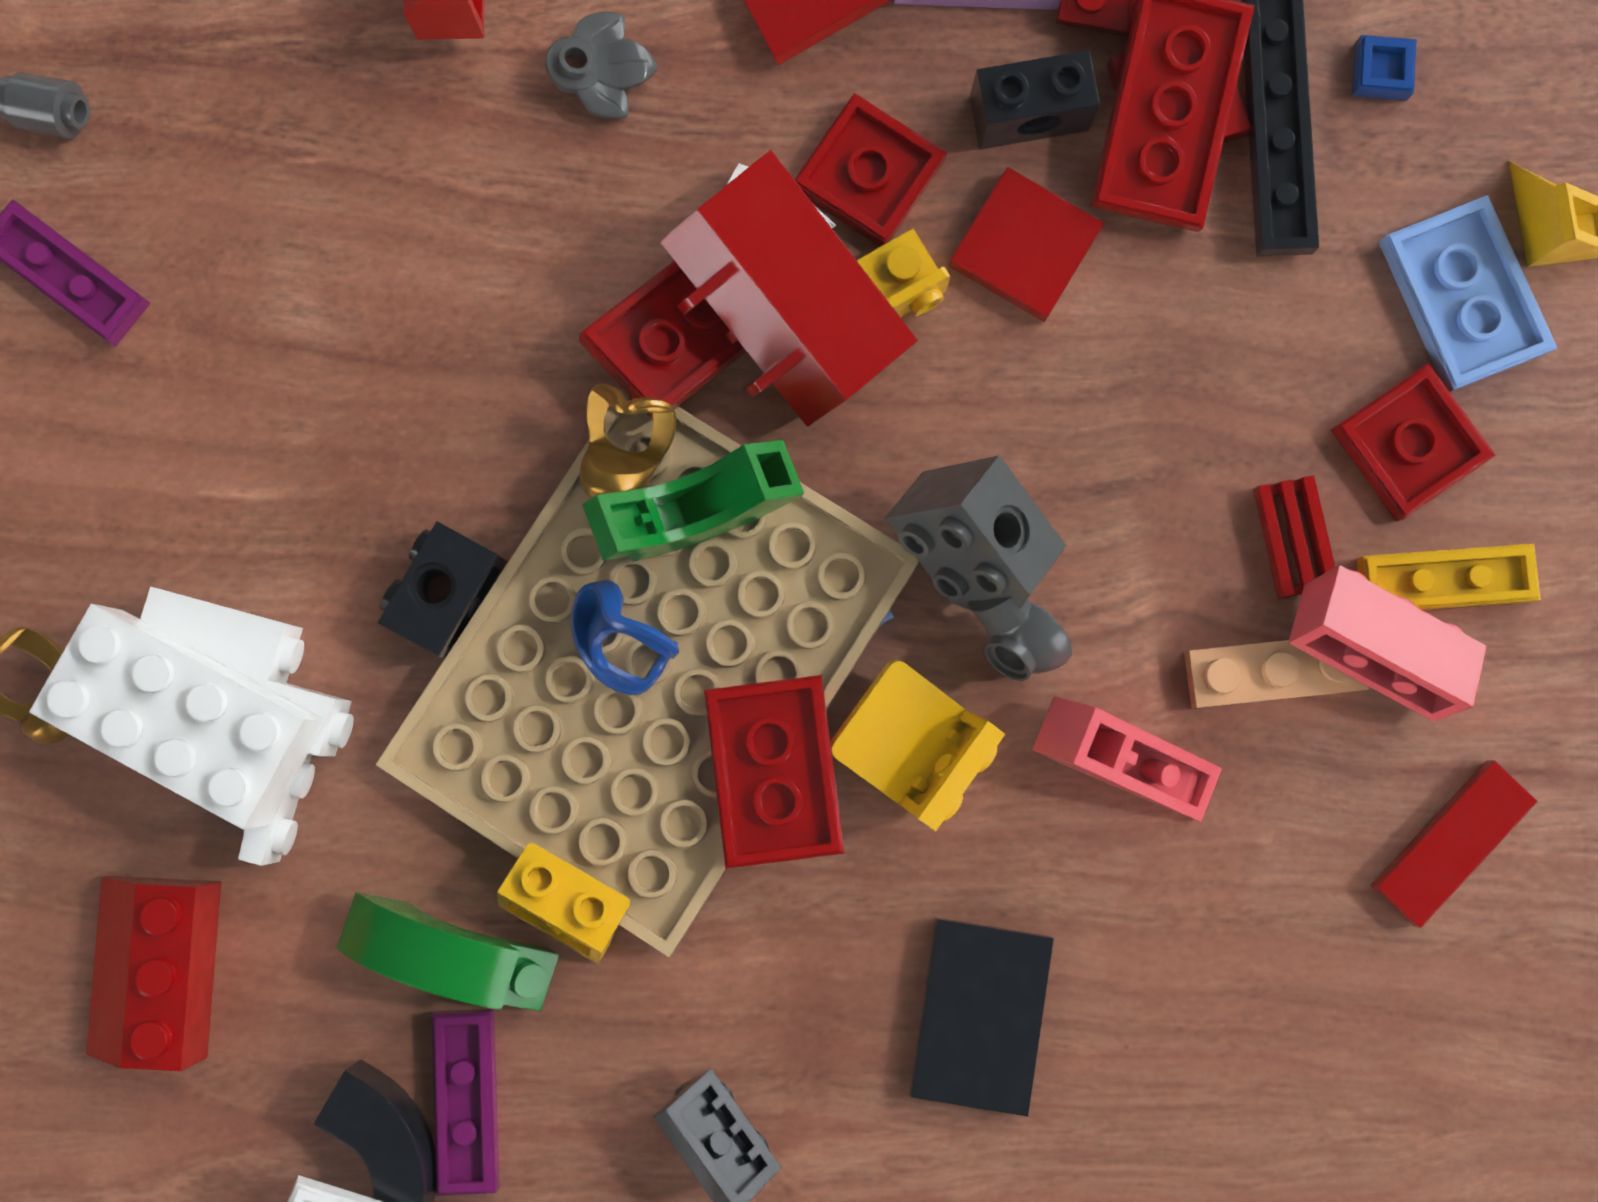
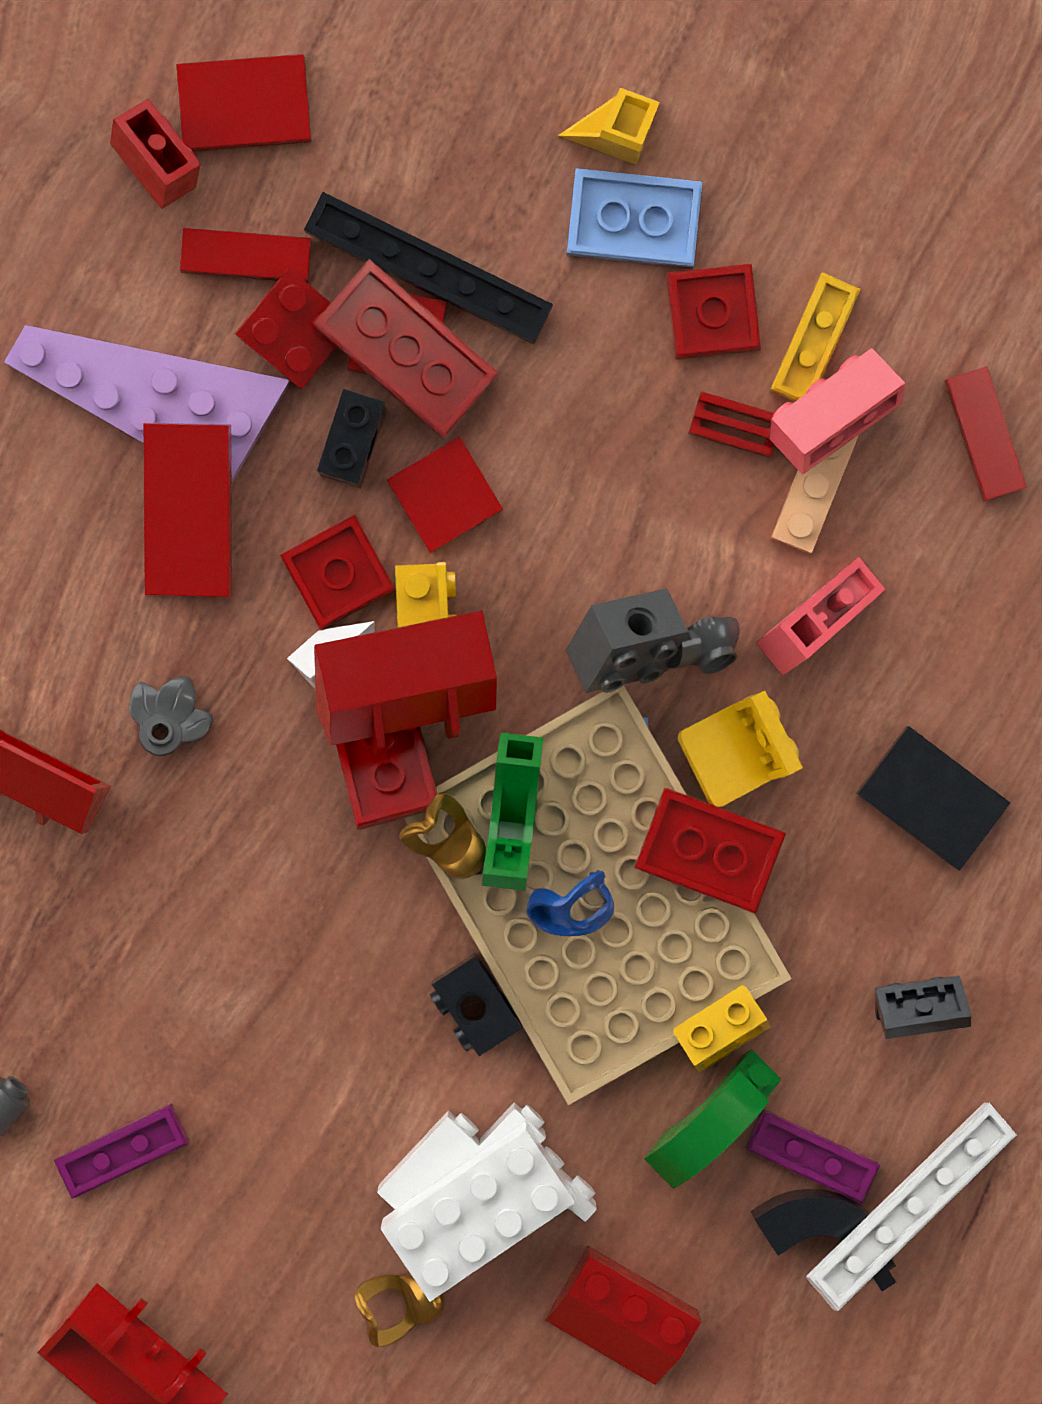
camera: 60 degrees left, 5 degrees up
(1384, 67) = (450, 185): blue tile -> none

